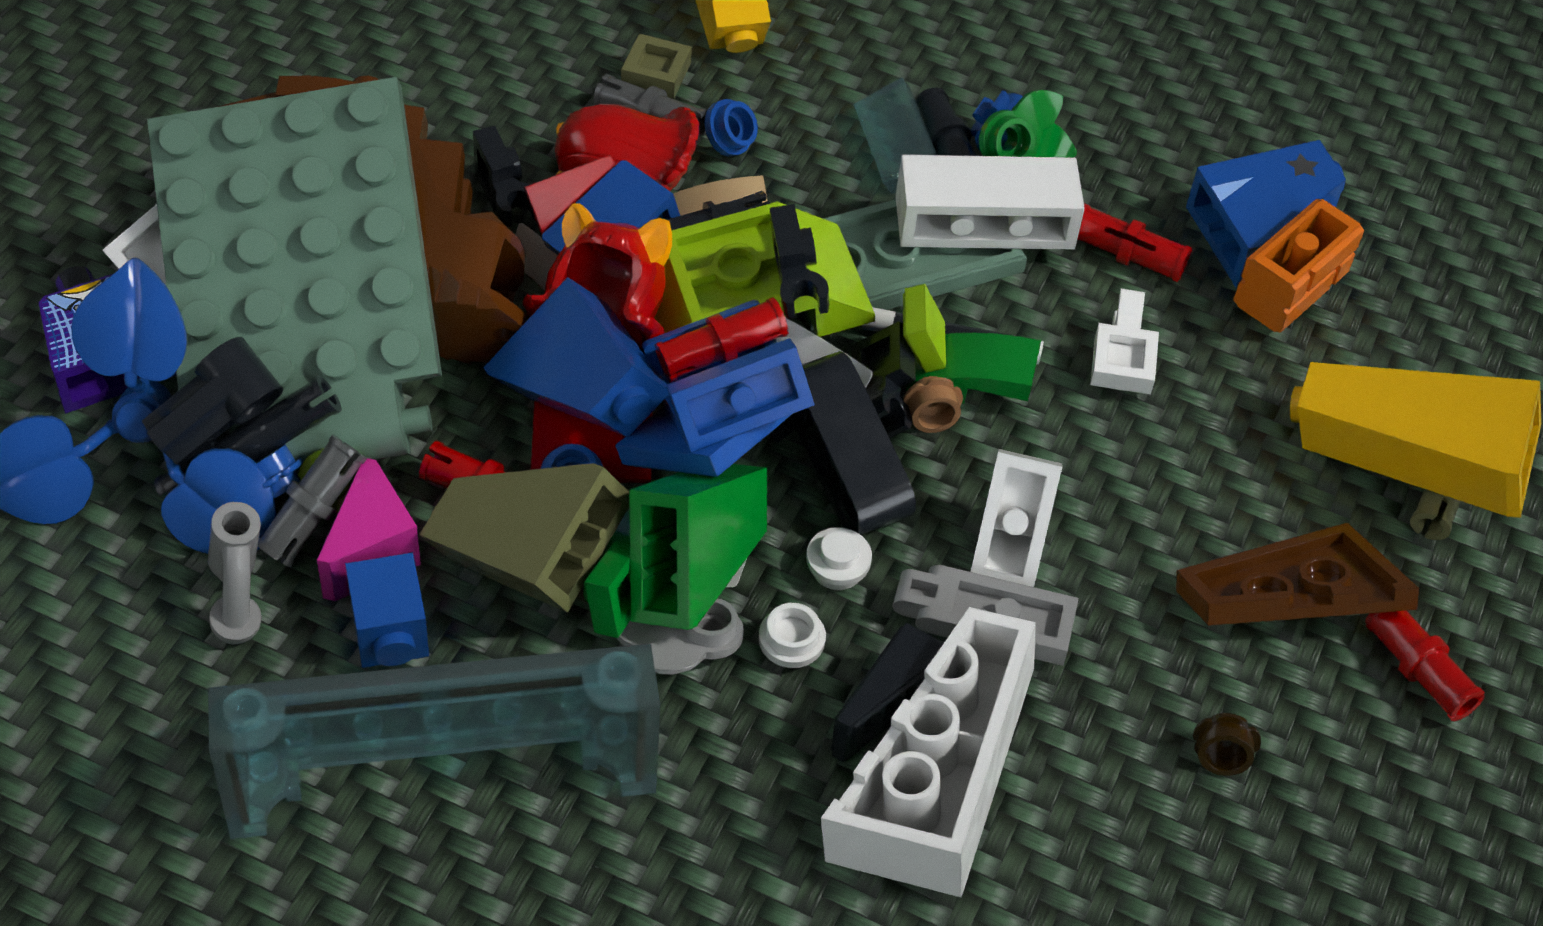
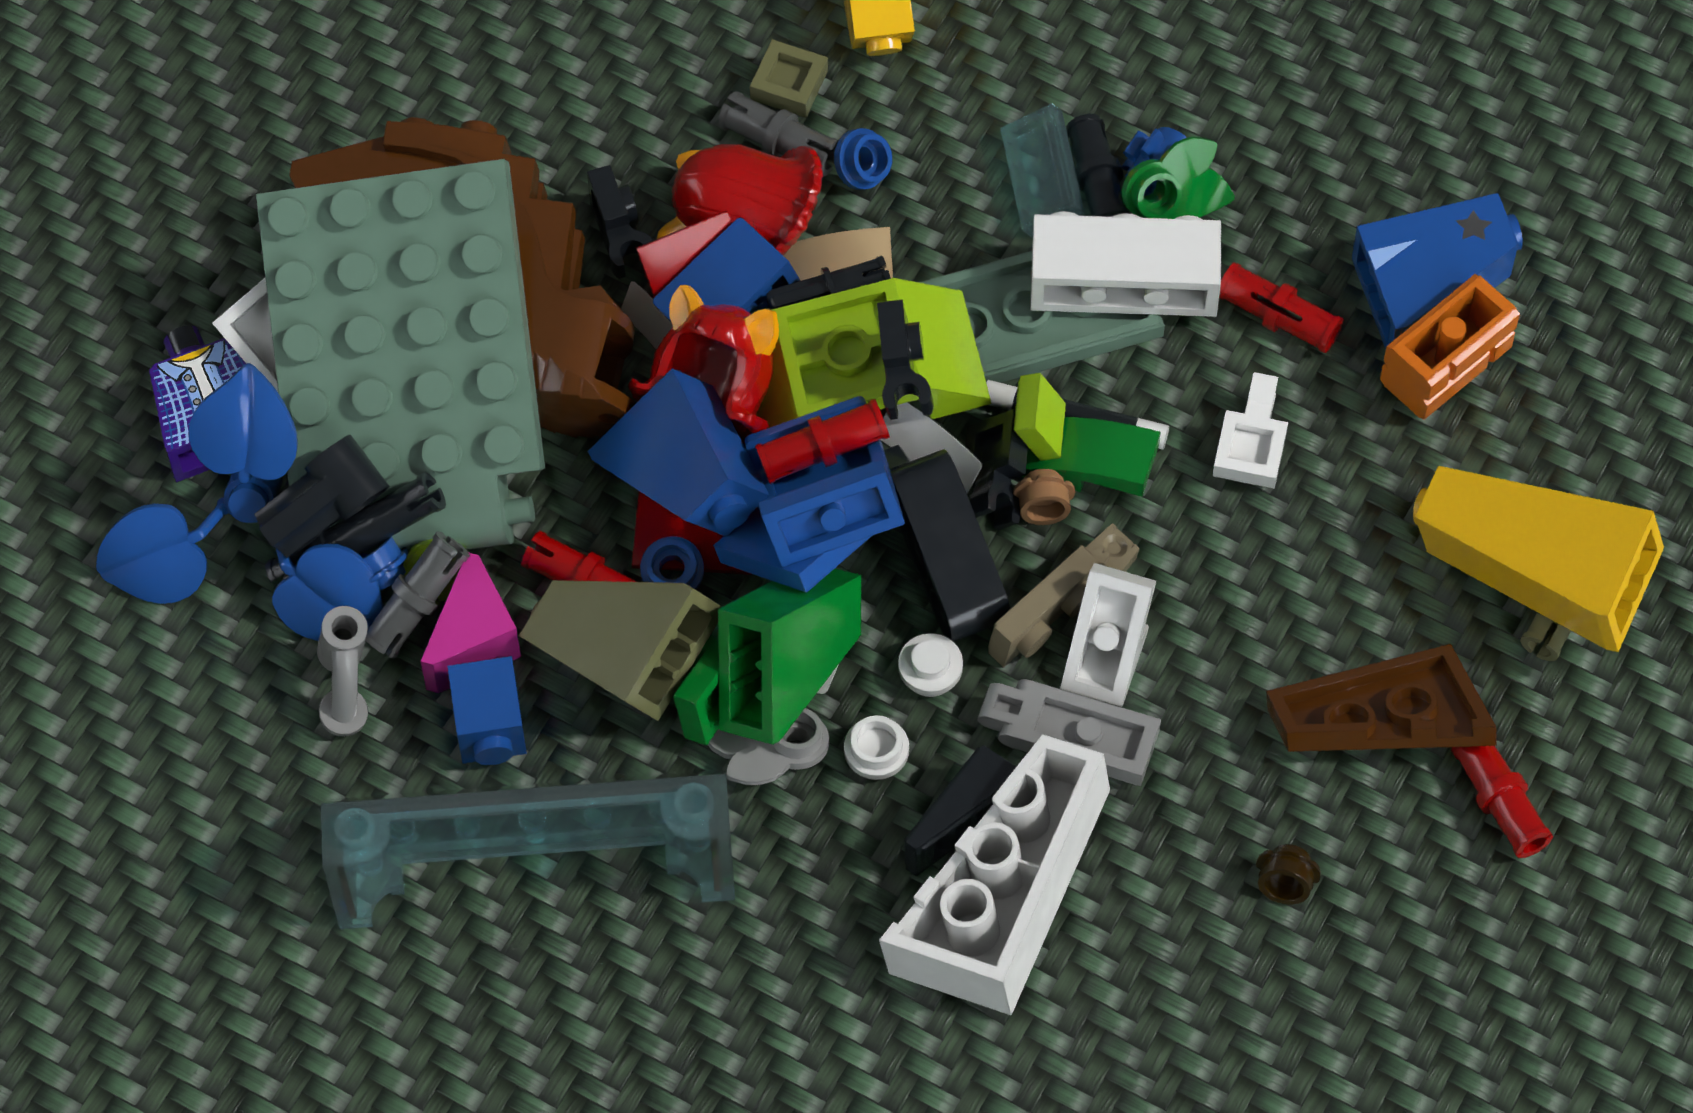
camera: 10 degrees right, 10 degrees up
(963, 484) = (1028, 622): none -> dark tan hinge

